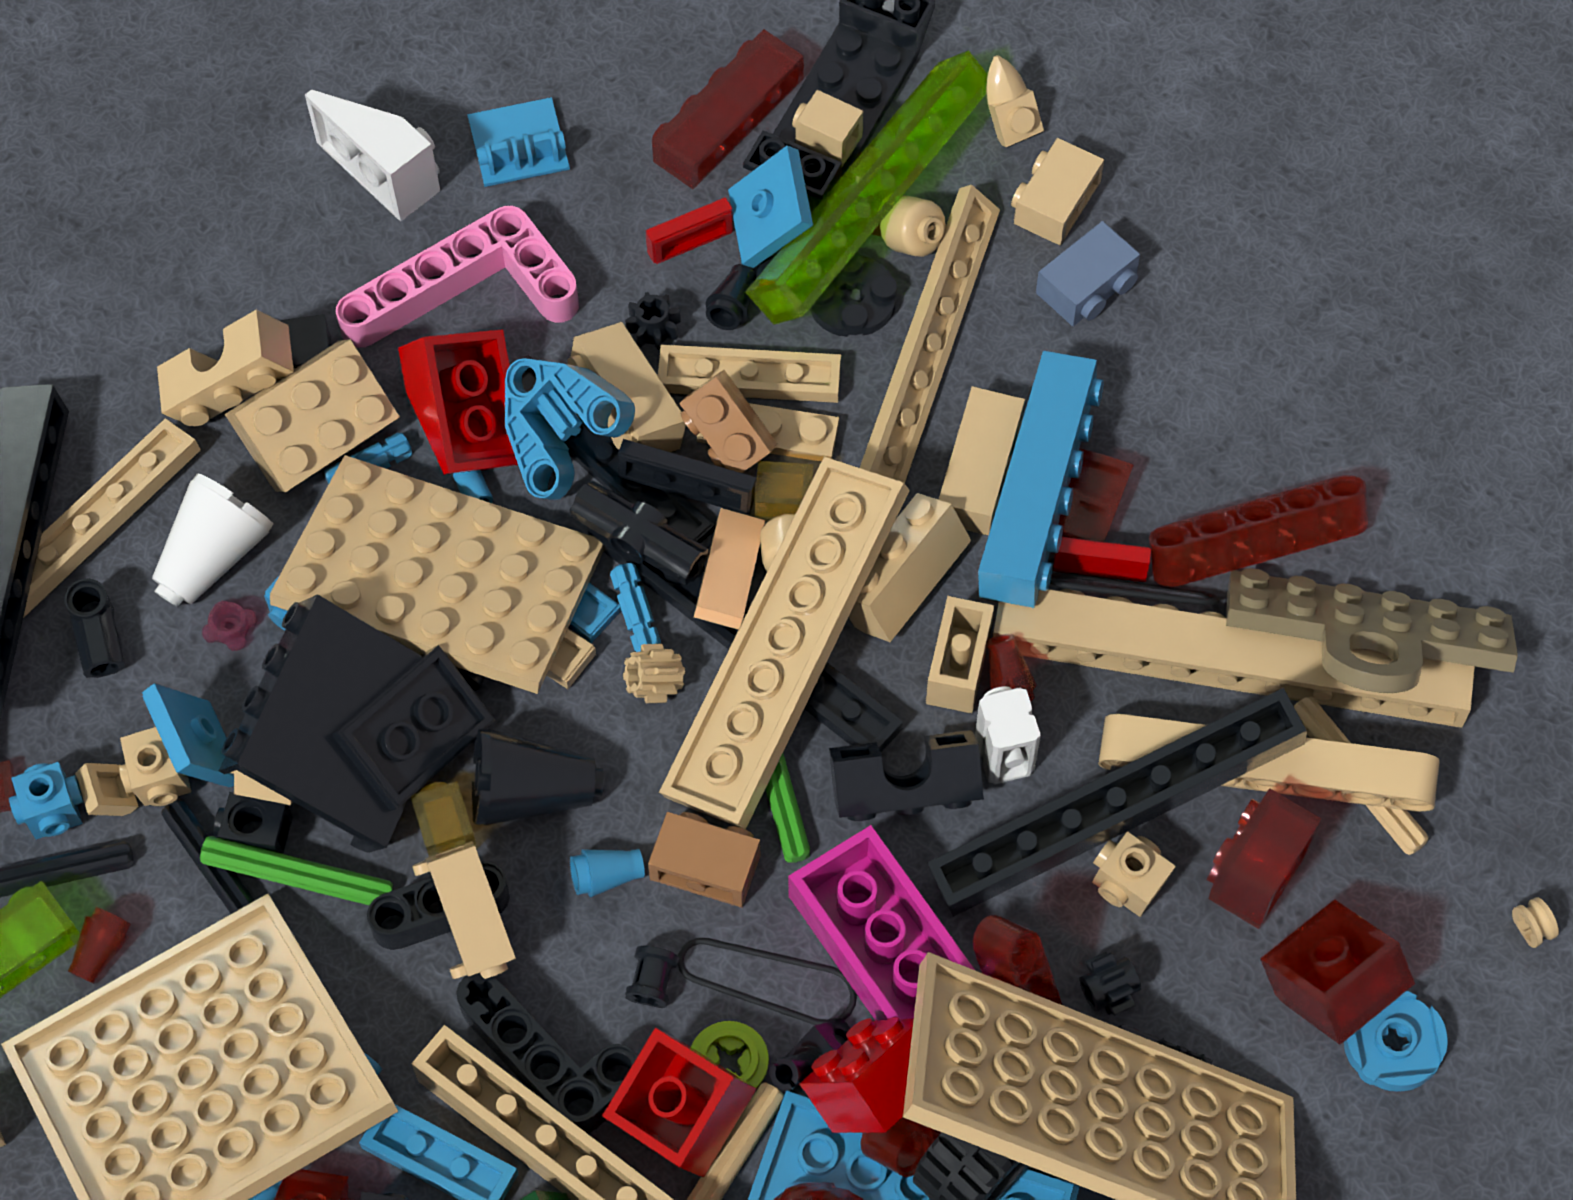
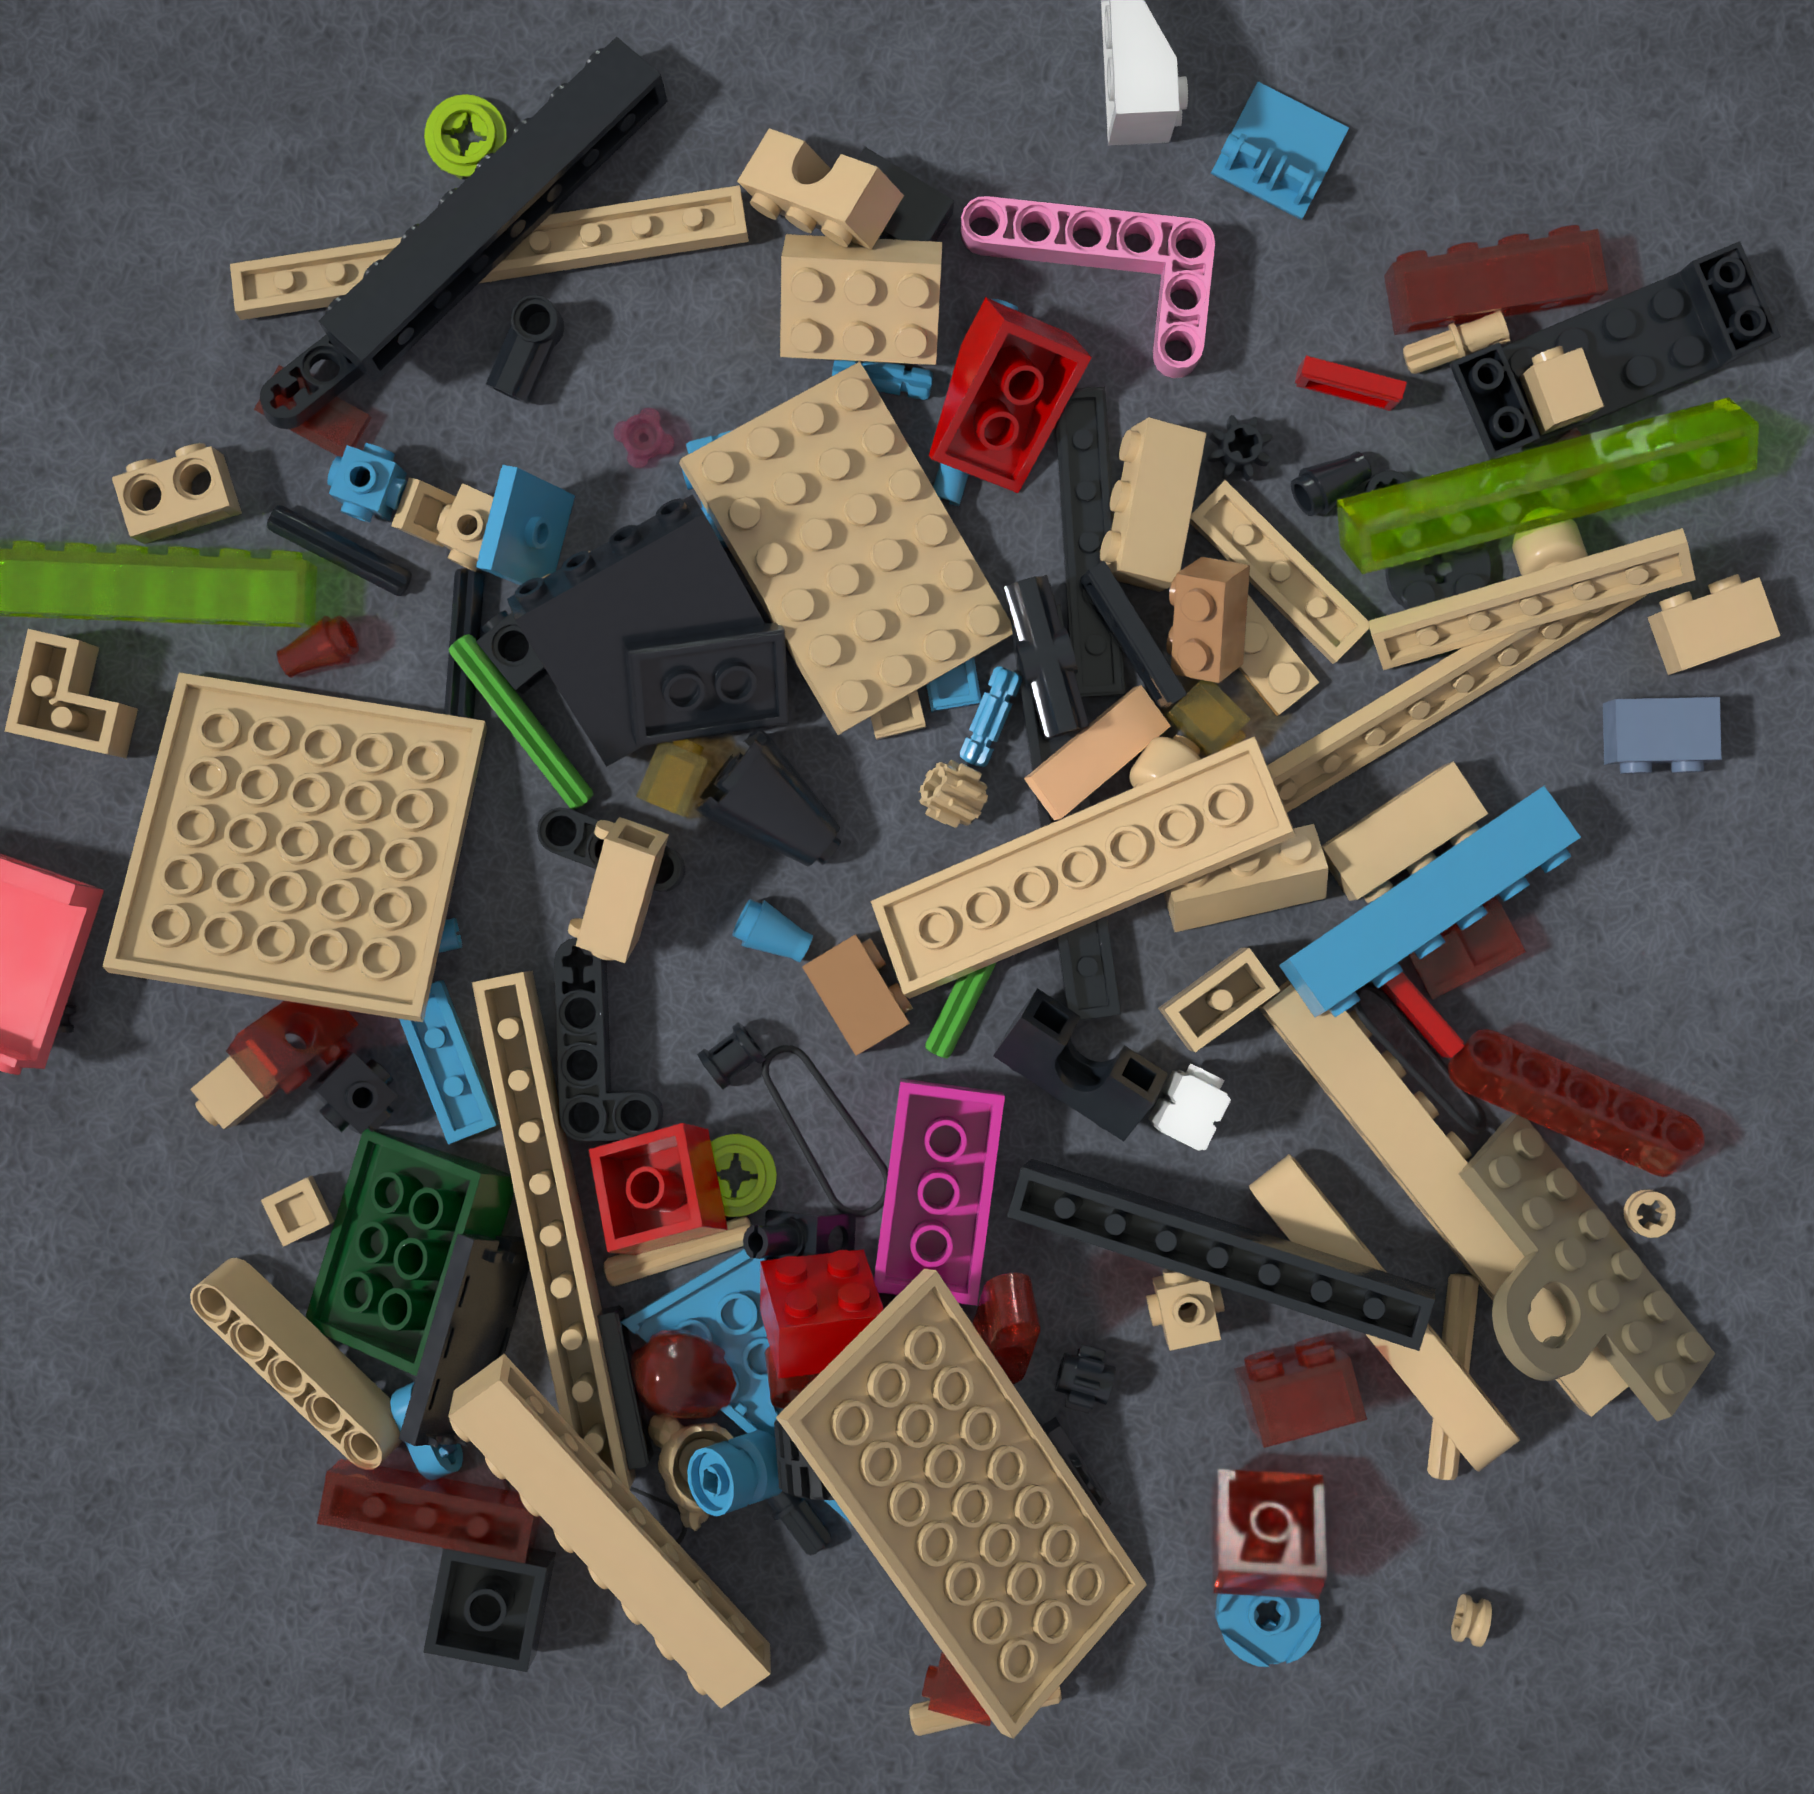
camera: 40 degrees right, 25 degrees up
(206, 540) = (681, 344): white cone -> none
(547, 417) = (1076, 476): dark azure connector -> none
(734, 156) = (1456, 342): none -> tan axle
(770, 207) = (1434, 432): dark azure plate -> none
(926, 254) = (1533, 599): none -> tan plate
(1008, 665) = (1244, 1051): clear red cone -> none
(1011, 104) = (1752, 501): tan plate -> none
(1368, 574) = (1650, 1229): none -> tan bush

